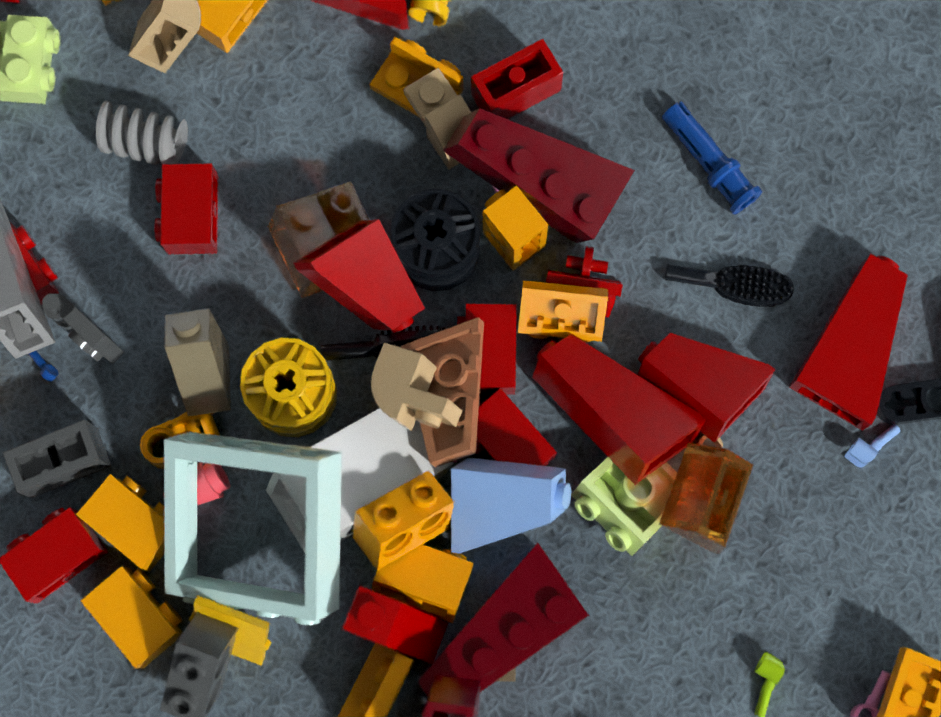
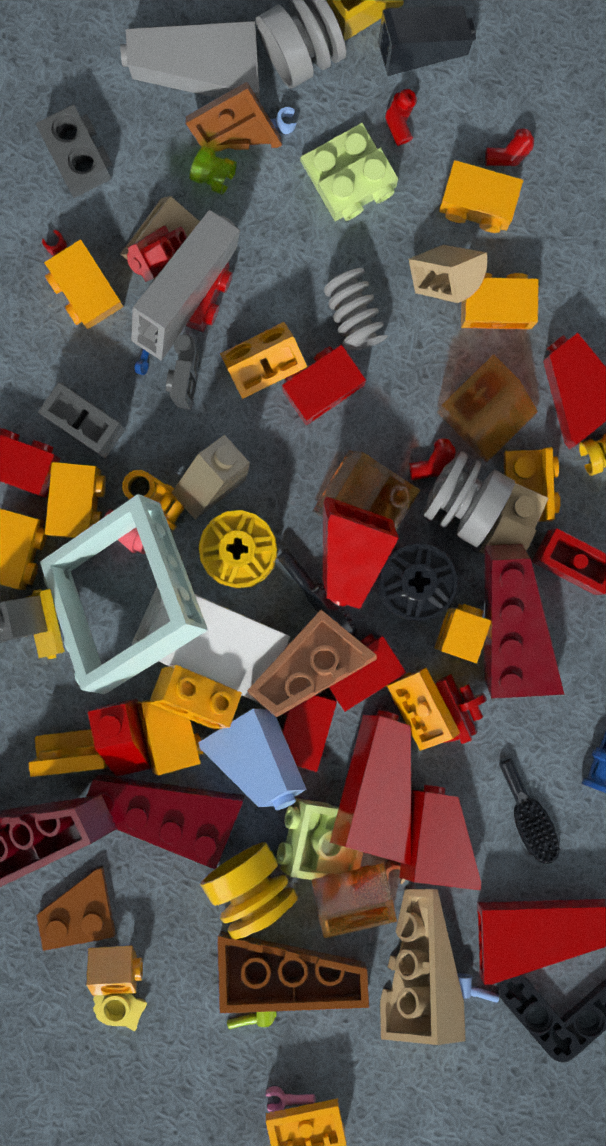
camera: 50 degrees right, 10 degrees up
(125, 247) = (263, 360): none -> light orange brick
(317, 72) = (488, 408): none -> clear orange slope
(338, 153) = (443, 454): none -> red arm
(389, 141) = (468, 498): none -> light grey wheel
(401, 389) = (284, 634): tan brick -> none
(632, 596) = (253, 897): none -> yellow wheel
(738, 626) = (283, 977): none -> dark orange wedge
(840, 487) = (425, 989): none -> tan wedge

